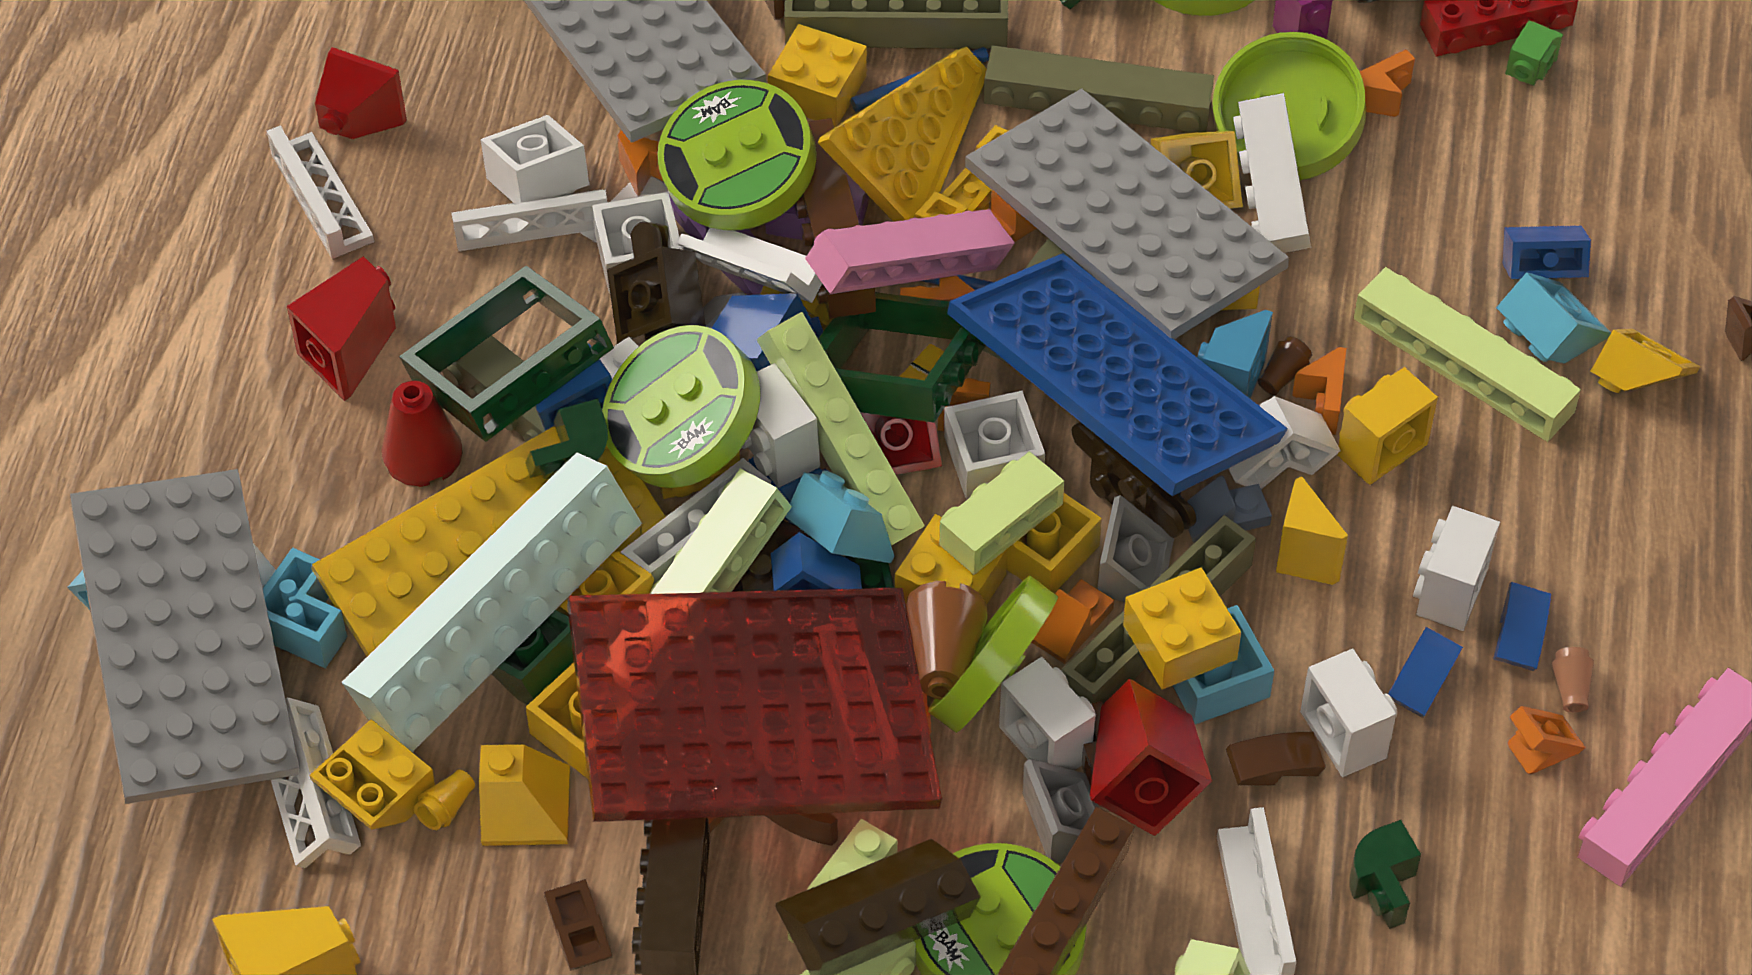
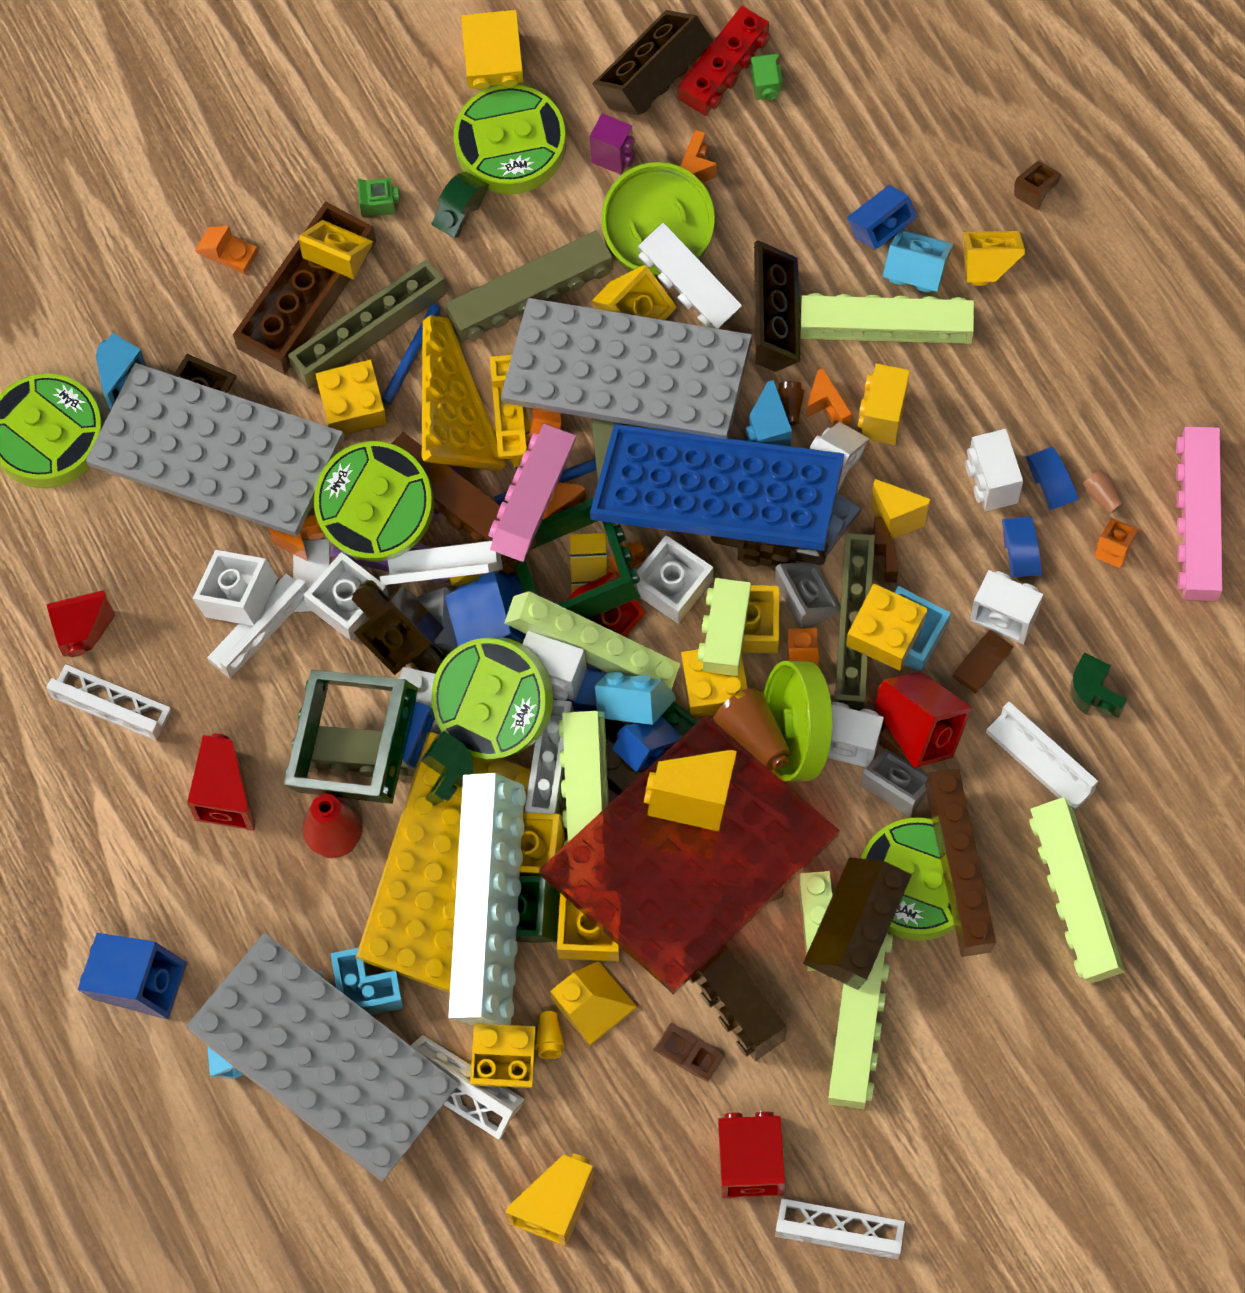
camera: 35 degrees left, 15 degrees up
(91, 439) = (132, 974): none -> blue slope
(807, 628) = (691, 789): none -> yellow slope
(1261, 572) = (885, 546): none -> reddish brown slope
(1342, 256) = (776, 307): none -> dark brown slope

